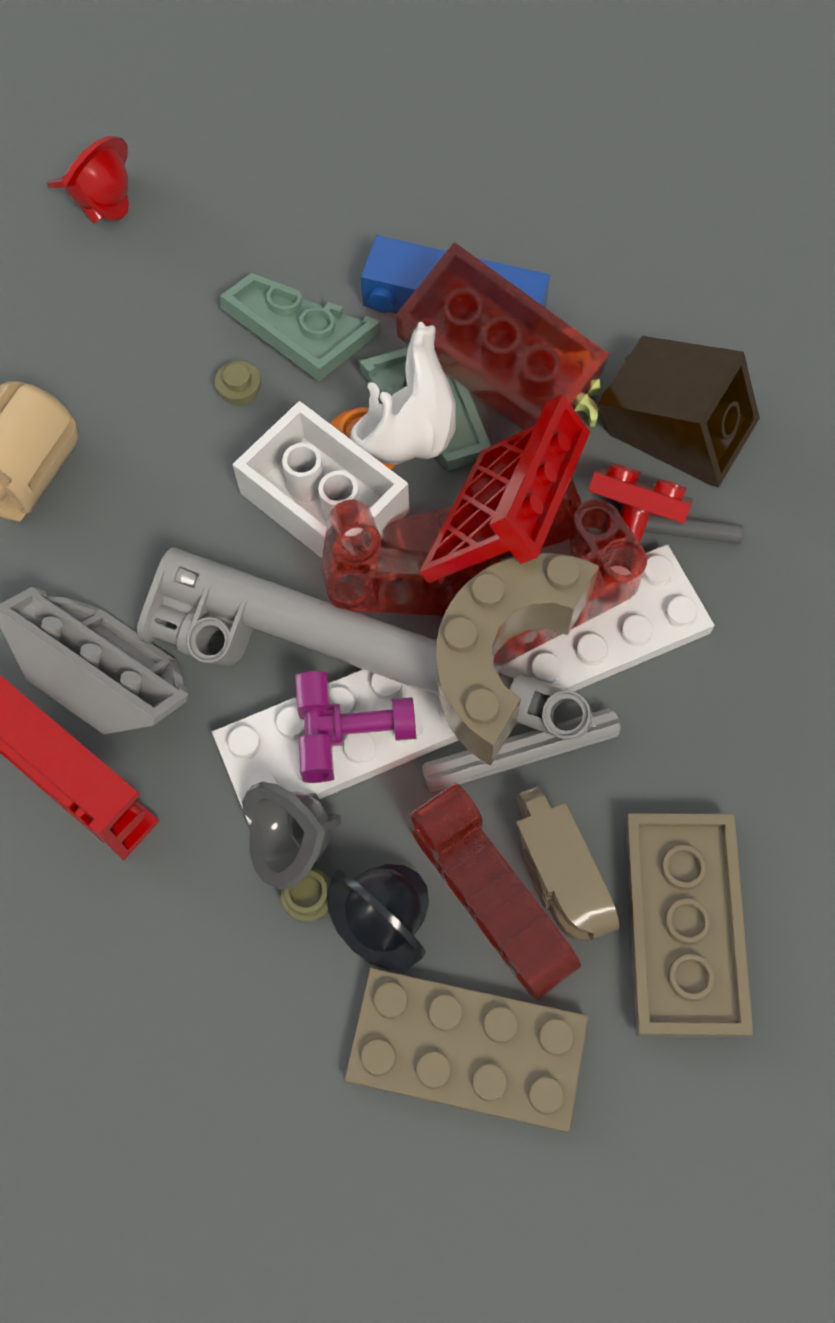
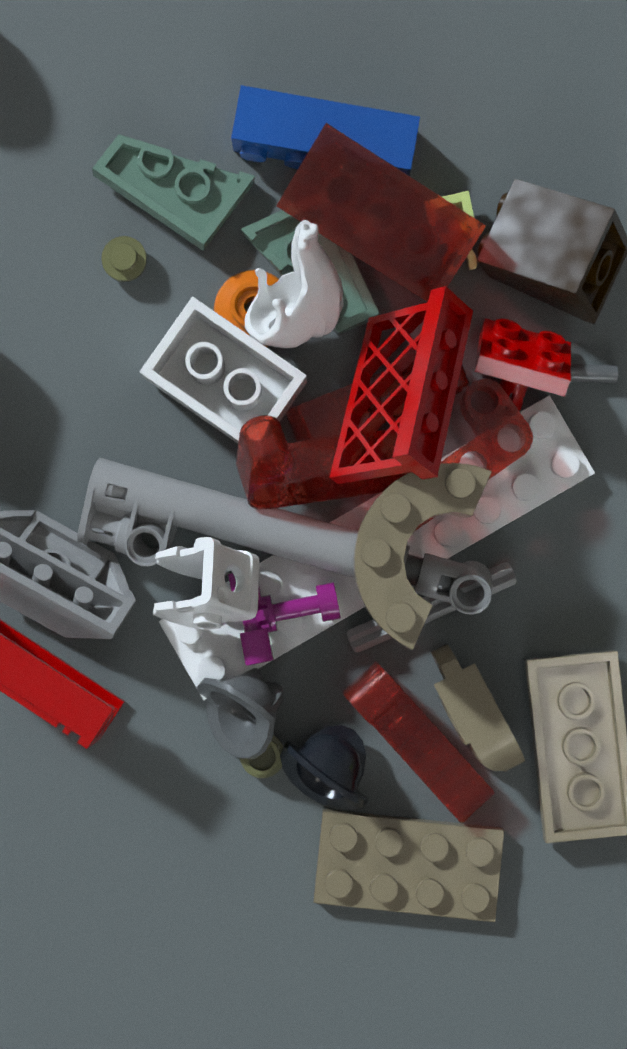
camera: 10 degrees left, 20 degrees up
(269, 691) = (217, 604): none -> white piece

